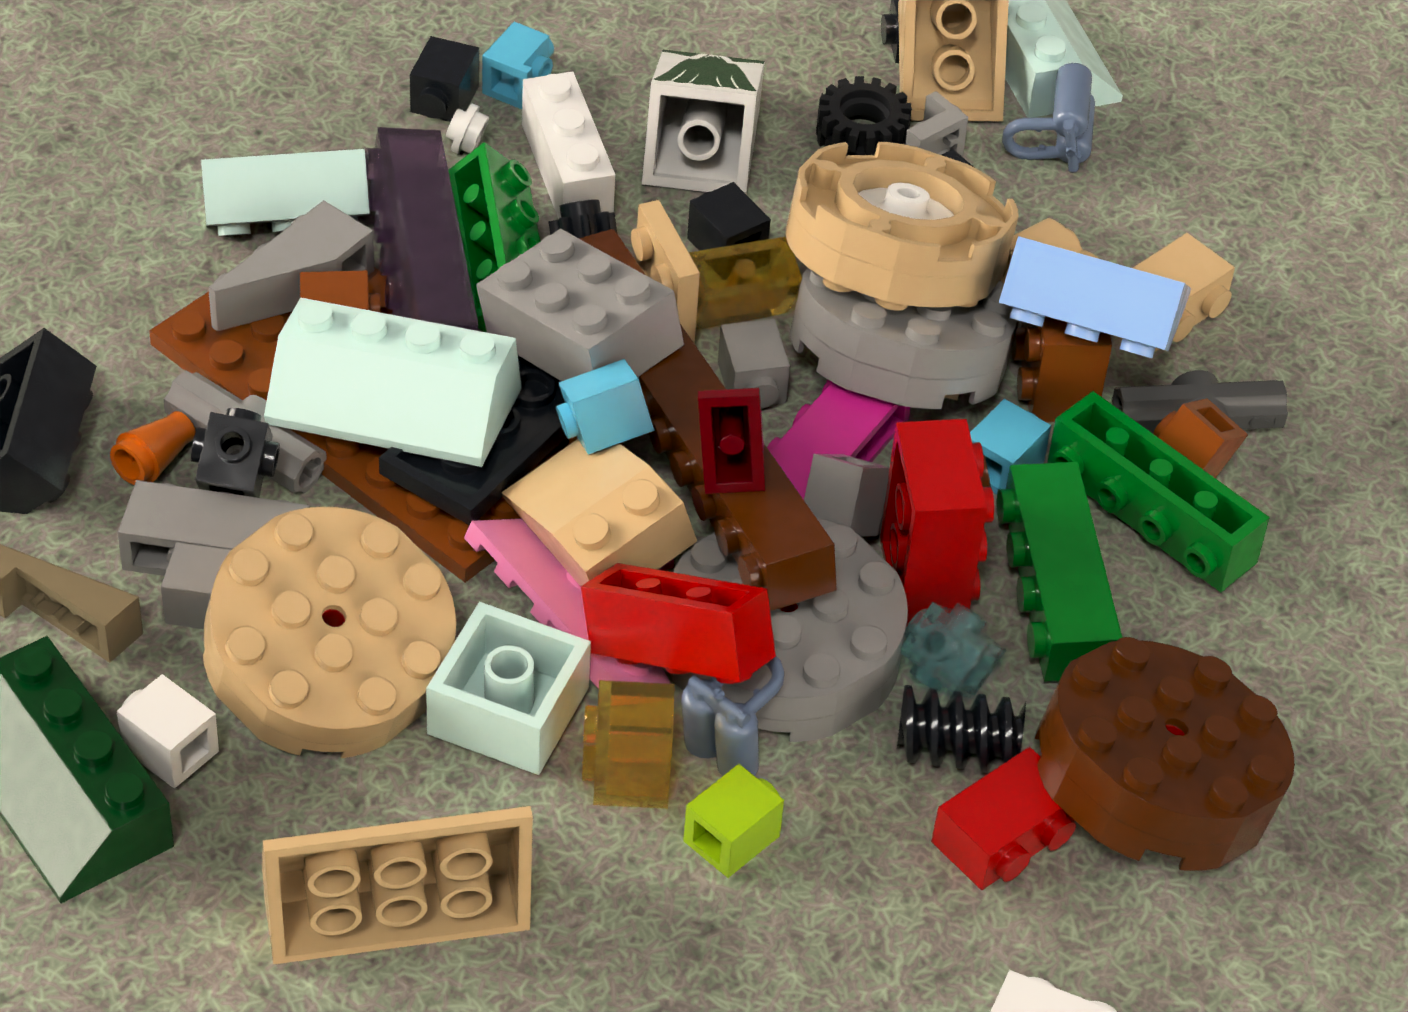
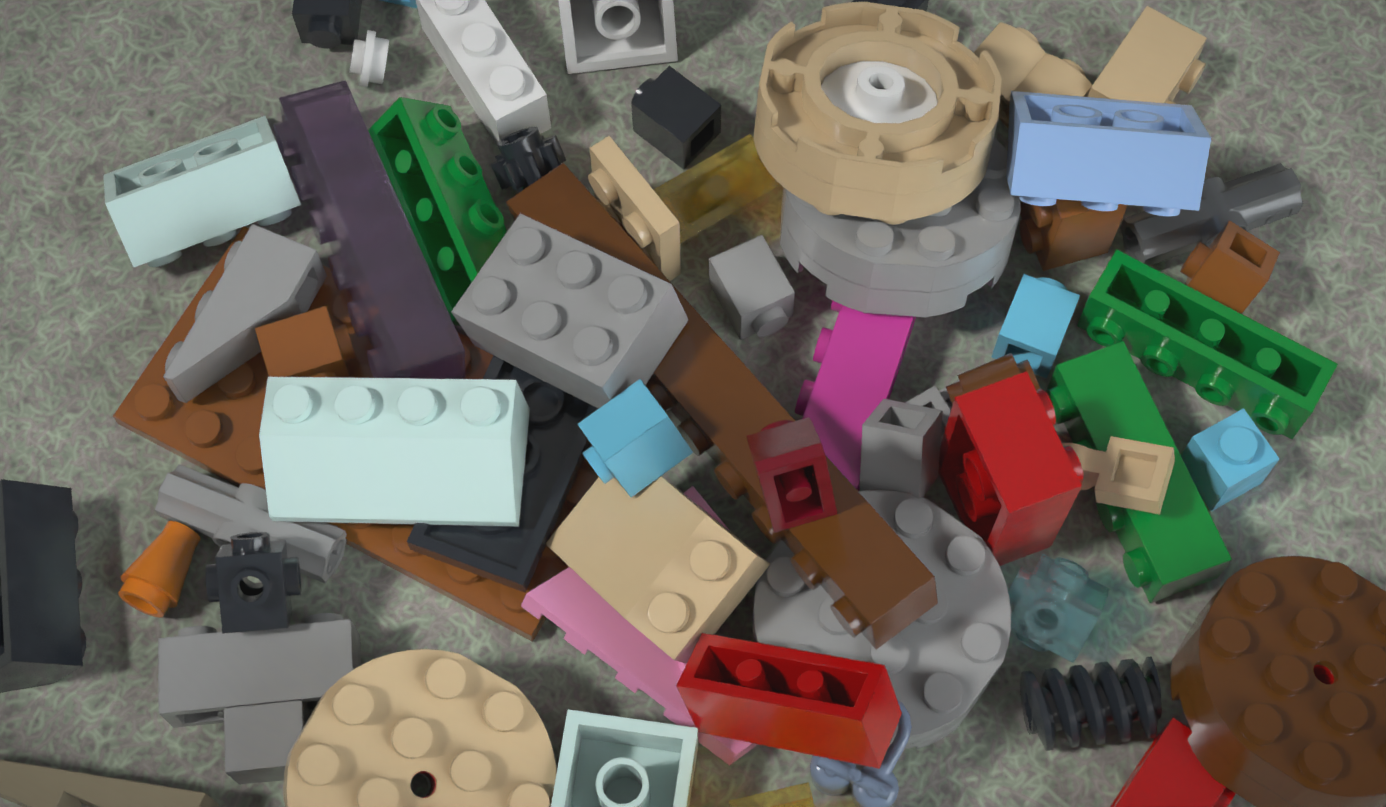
camera: 10 degrees left, 20 degrees up
(1041, 546) = (1128, 473): none -> tan plate
(1150, 583) = (1228, 459): none -> medium azure brick

